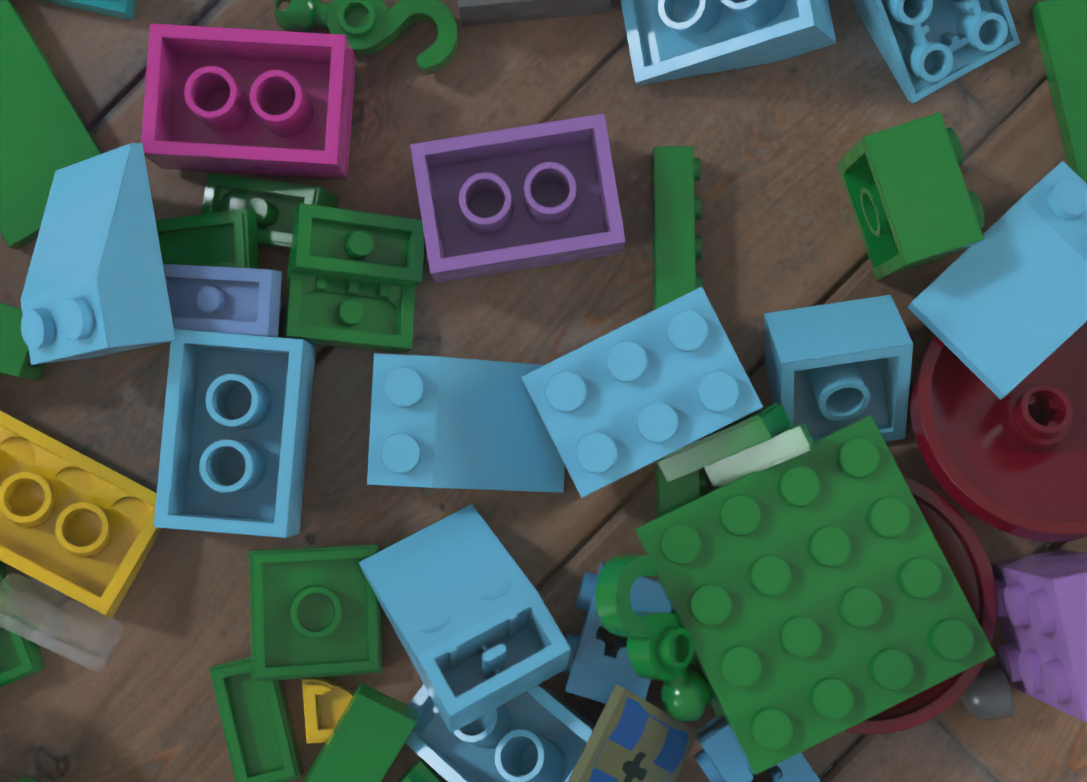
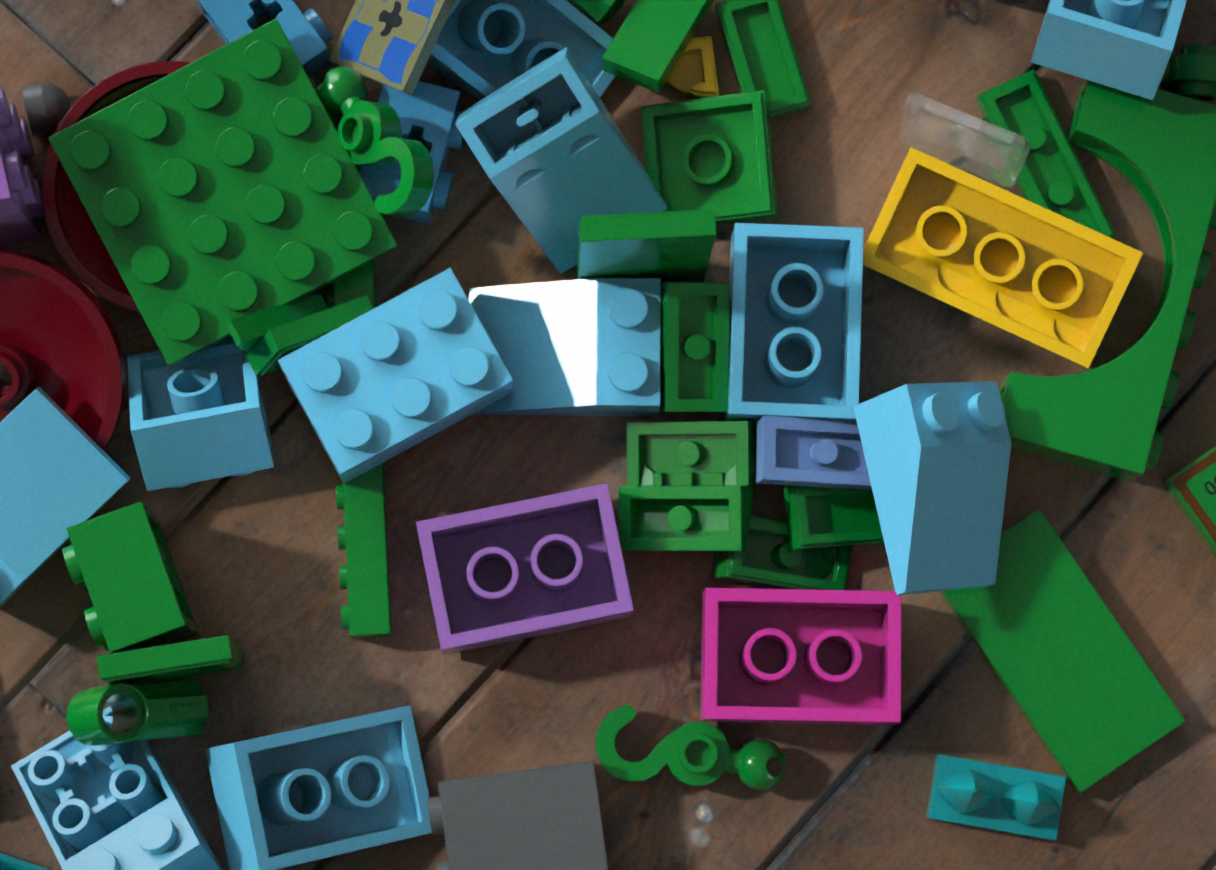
camera: 165 degrees right, 5 degrees down
(335, 415) = (694, 346): none -> green tile
(370, 506) = (647, 245): none -> green tile
(847, 118) = (171, 661): none -> green tile
(899, 74) = (138, 711): none -> green piece

